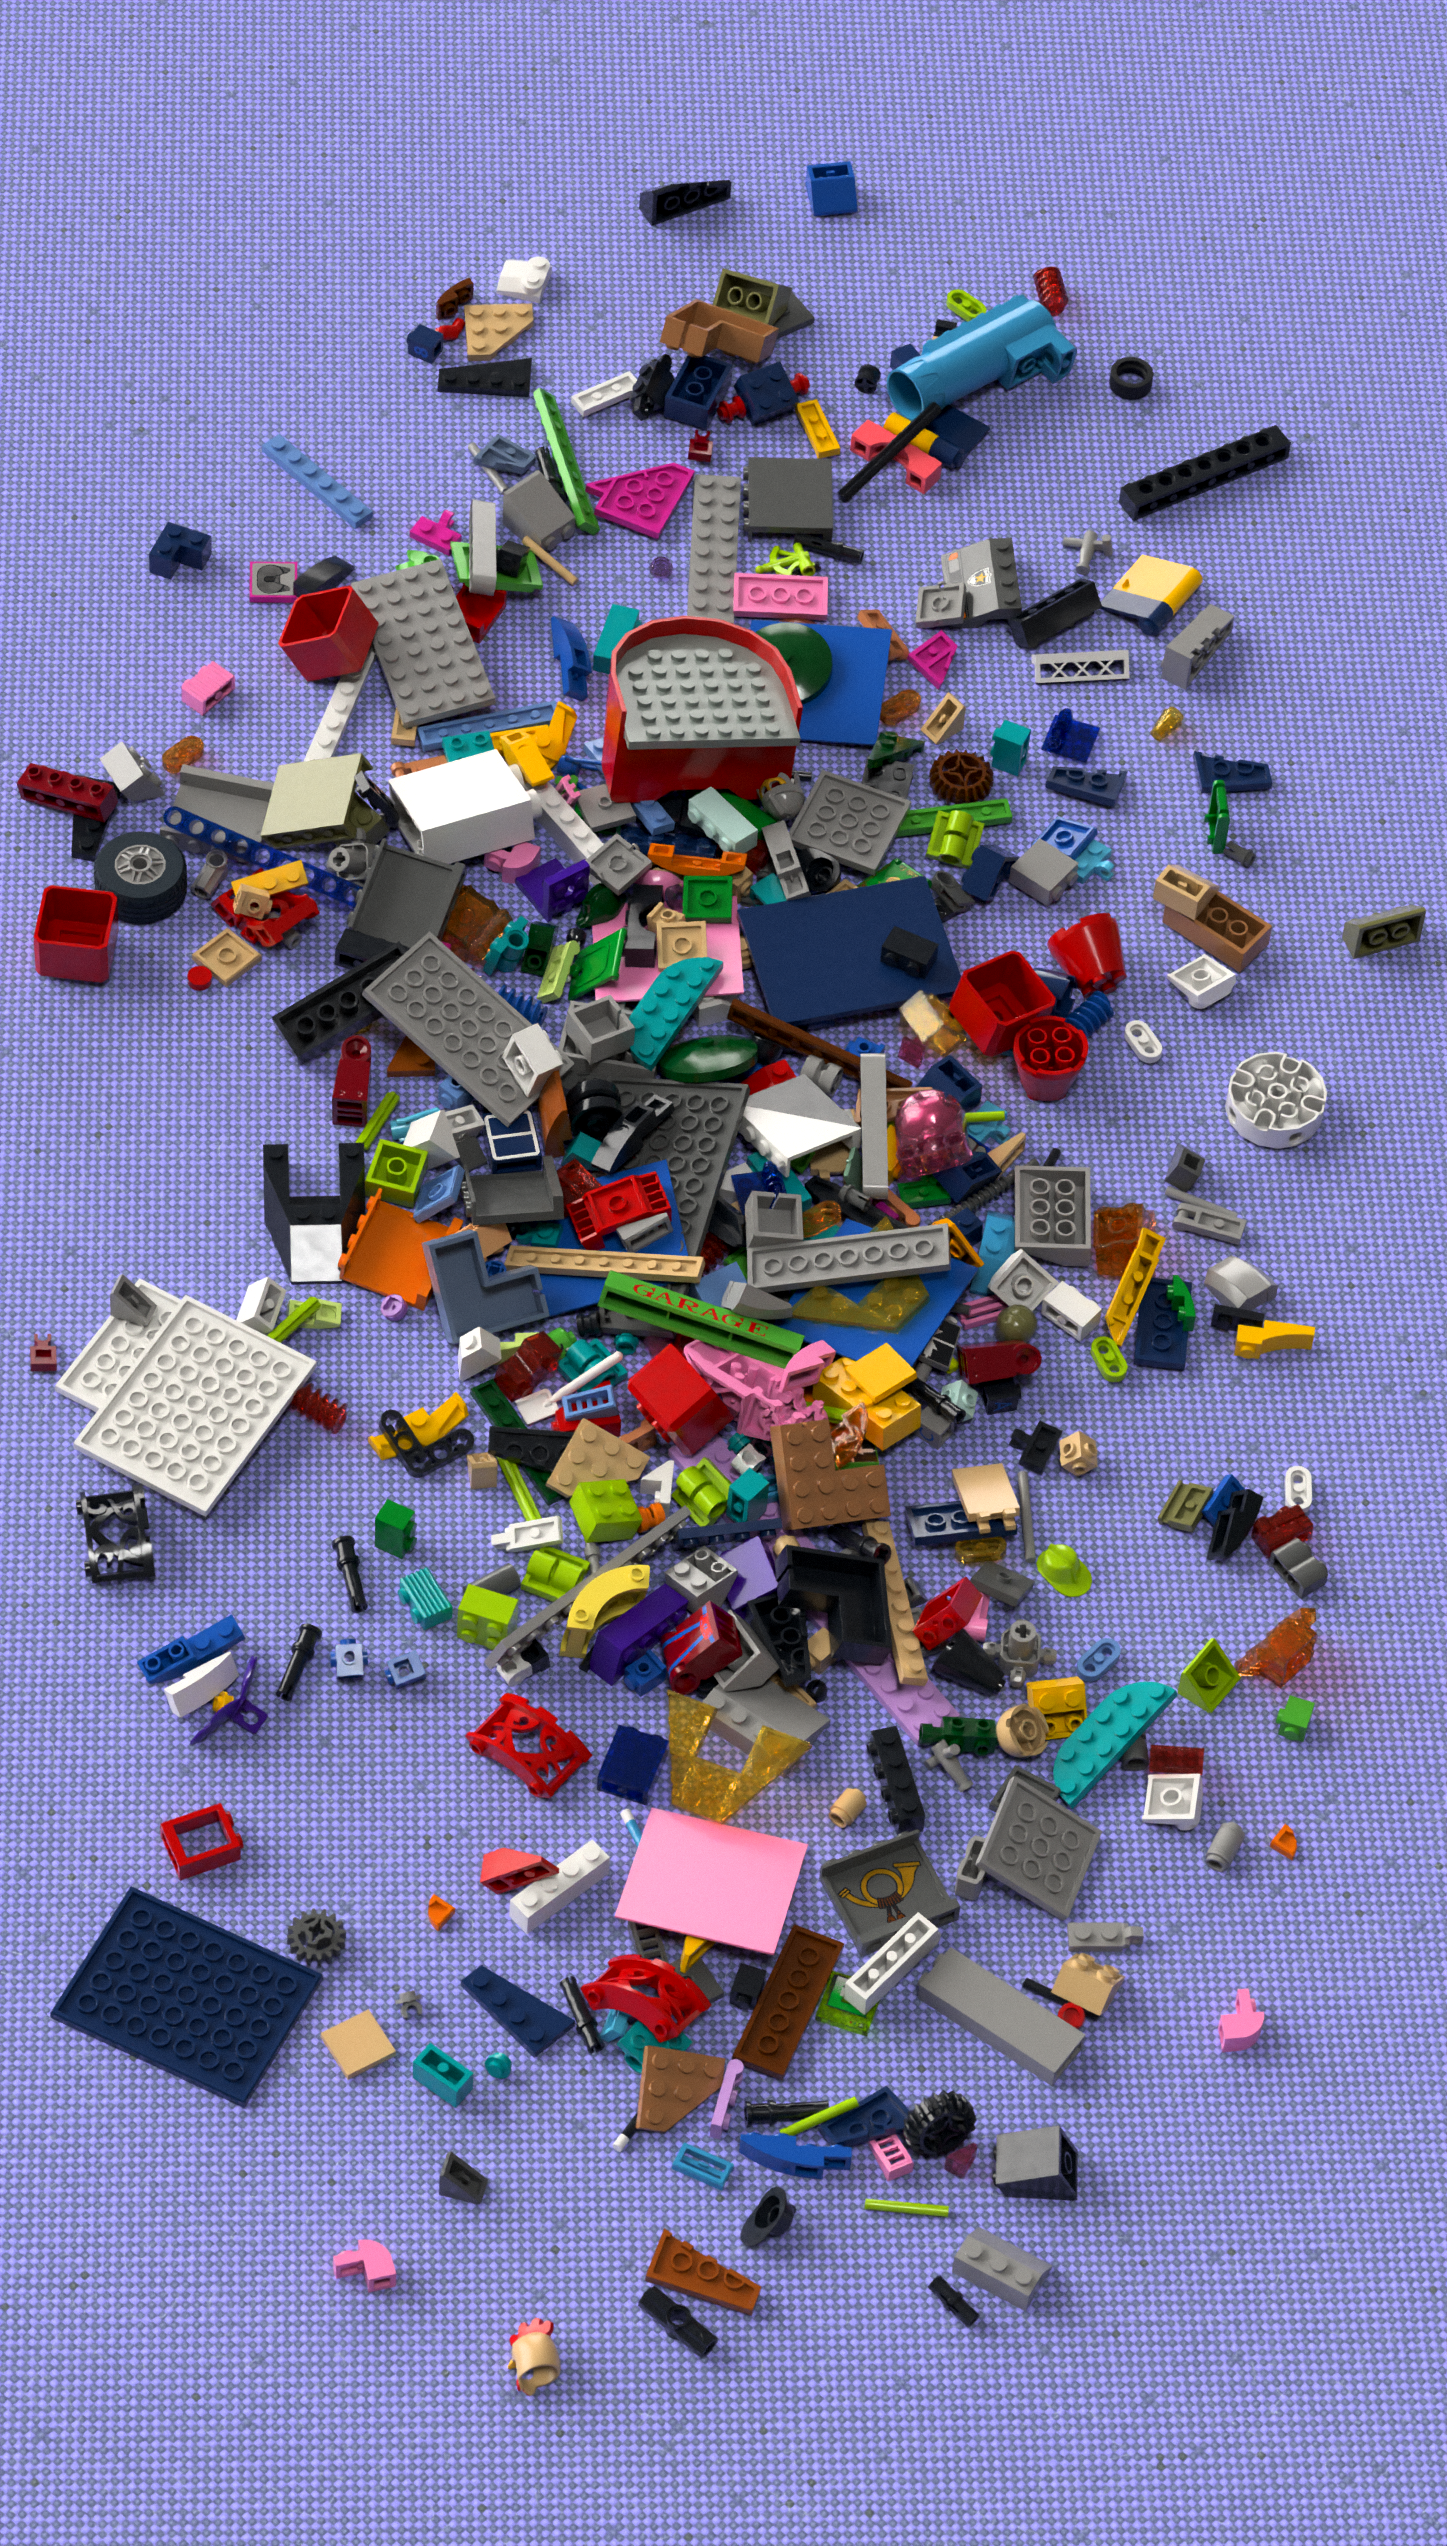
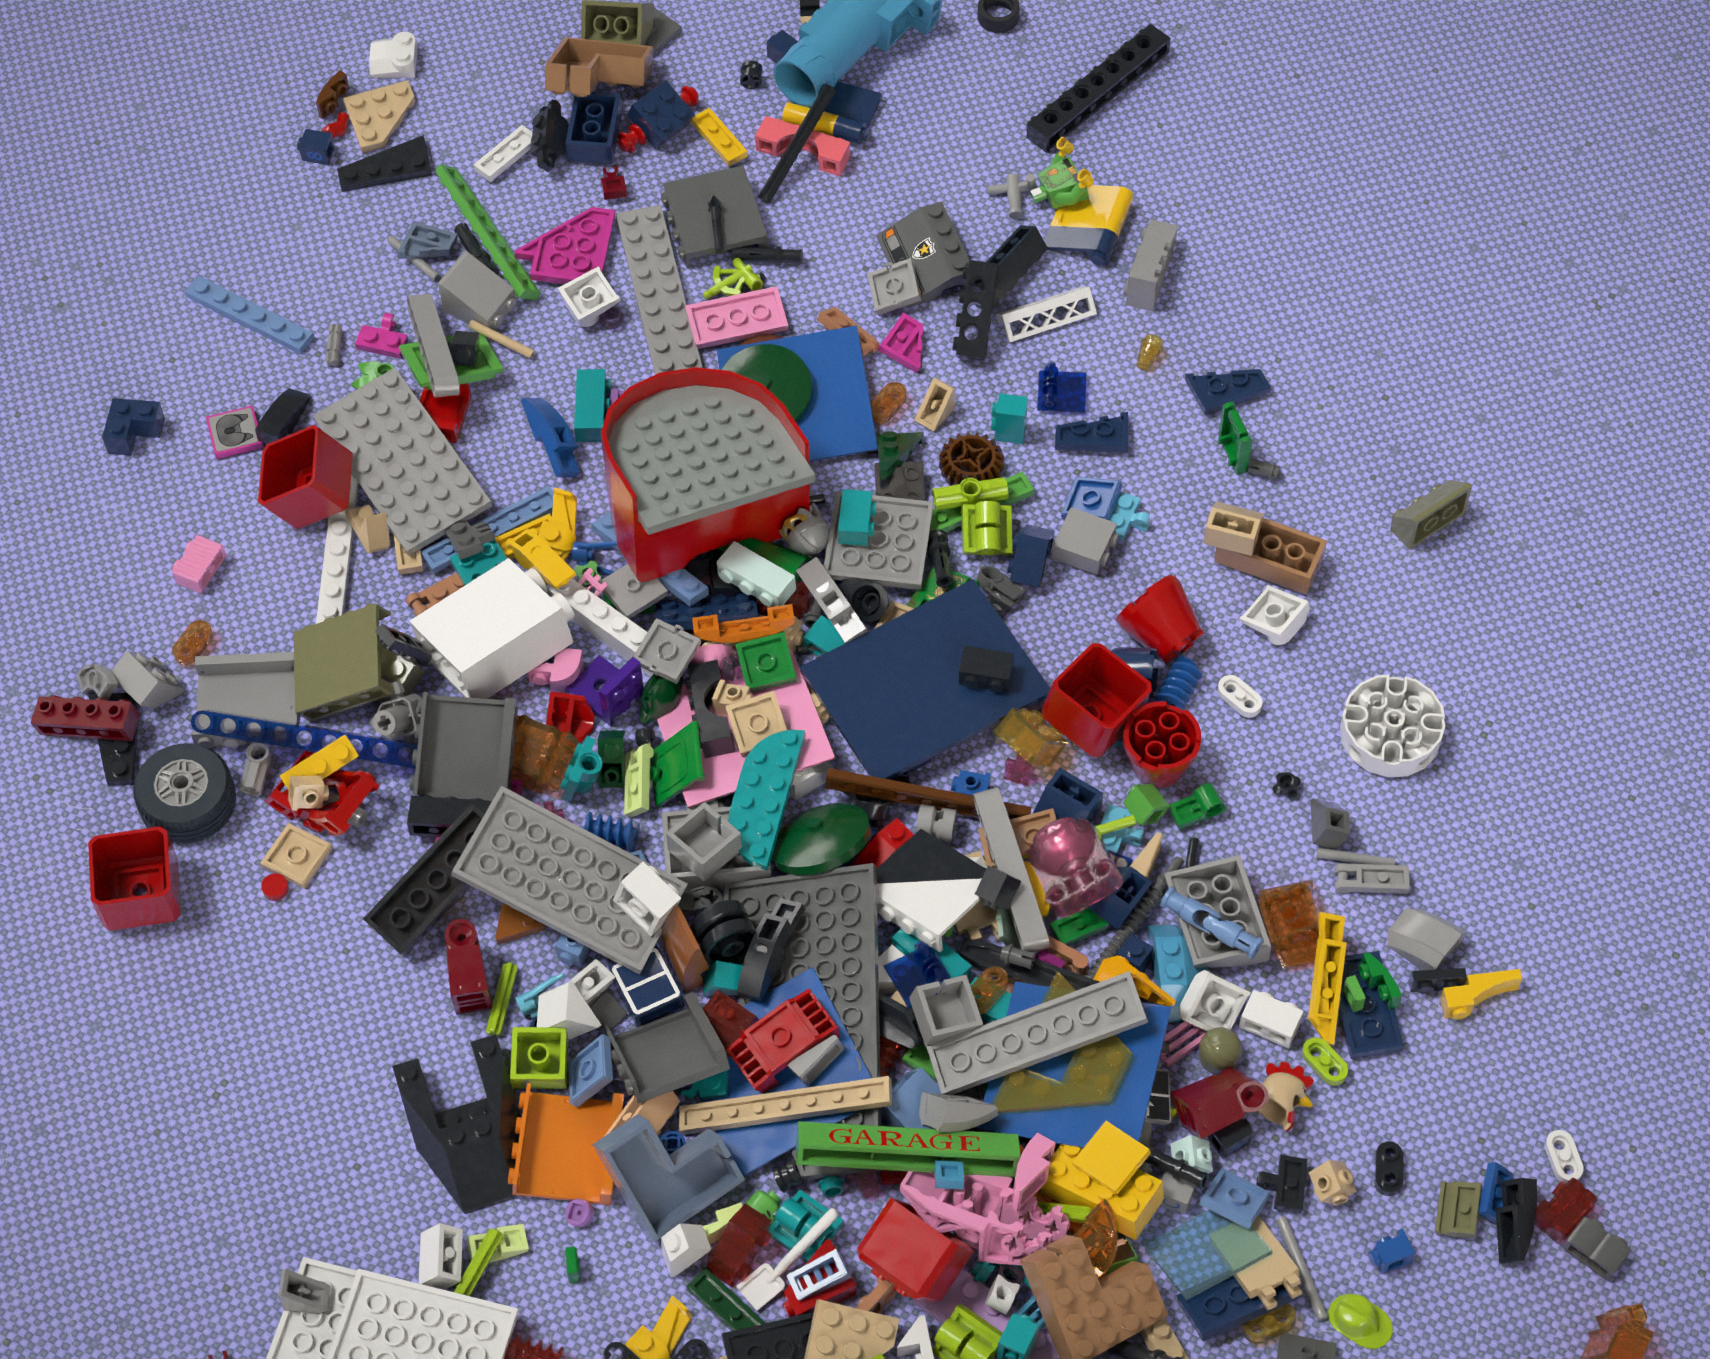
camera: 10 degrees left, 5 degrees up
(86, 761) = (97, 679): none -> light grey tile
(375, 1345) = (572, 1262): none -> green tile
(376, 696) = (370, 528): none -> tan slope
(389, 527) = (333, 345): none -> light grey axle
(463, 726) = (469, 539): none -> dark grey hinge
(514, 897) = (570, 714): none -> red slope
(644, 542) = (588, 297): none -> white slope
(730, 1349) = (949, 1174): none -> dark azure plate
(789, 492) = (715, 208): none -> black piece
(832, 795) = (855, 517): none -> teal brick
(854, 1133) = (997, 888): none -> black brick
(902, 849) = (939, 554): none -> black pin
(945, 1477) = (1206, 1252): none -> clear light blue piece
(948, 800) = (957, 495): none -> lime piece
(985, 1444) = (1235, 1198): none -> medium blue tile
(1003, 678) = (974, 272): none -> black brick
(1020, 1108) = (1145, 804): none -> bright green brick
(1053, 1224) = (1226, 931): none -> medium blue piece
(1059, 1373) = (1286, 1090): none -> tan piece
(1069, 1124) = (1201, 805): none -> green plate
(1111, 1524) = (1392, 1252): none -> blue brick
(1135, 1457) = (1389, 1166): none -> black plate
(1136, 549) = (1061, 180): none -> bright green torso
(1153, 1307) = (1354, 993): none -> bright green tile
(1157, 1122) = (1289, 779): none -> black plate

